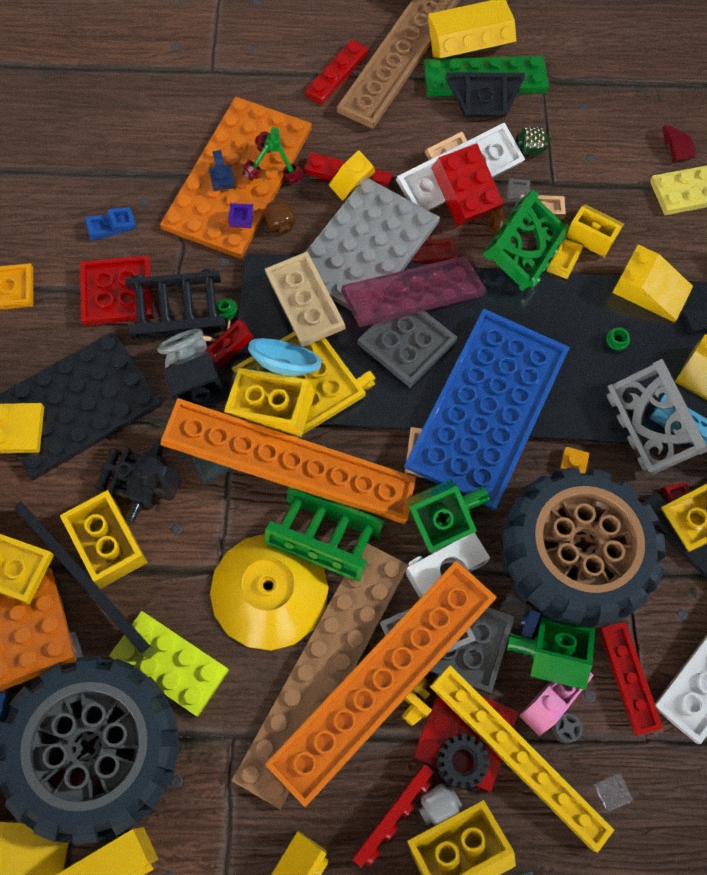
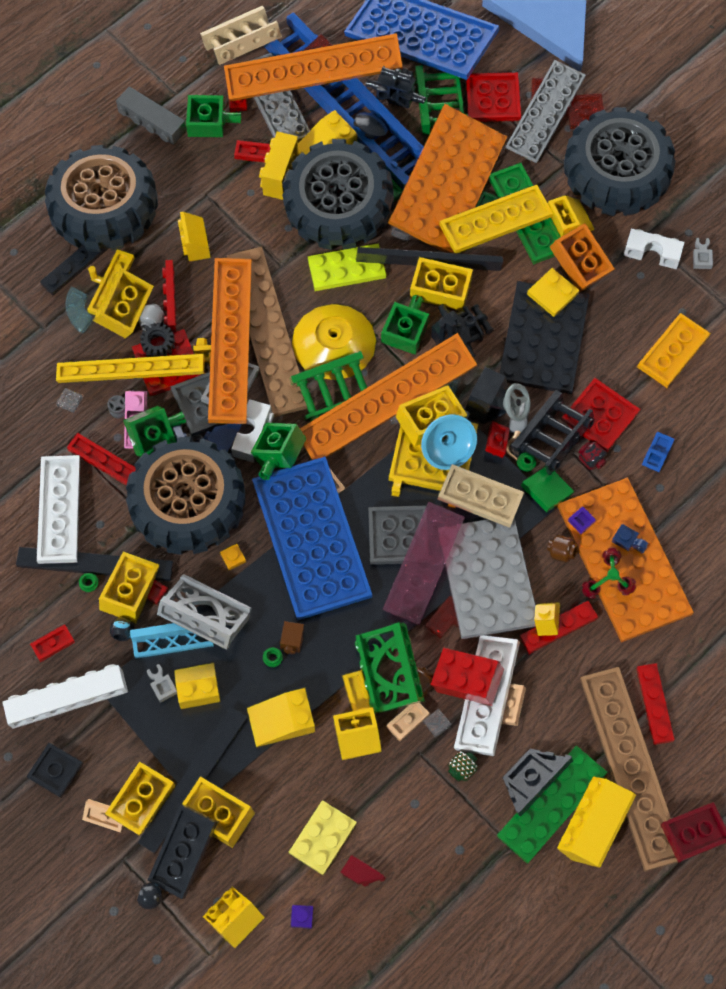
camera: 140 degrees right, 0 degrees up
(165, 261) = (592, 455): none -> head
(175, 530) = (405, 326): none -> green brick
(237, 270) = (547, 489): none -> green tile
(496, 579) = (223, 435): none -> dark blue slope
(587, 336) = (292, 637): none -> reddish brown brick

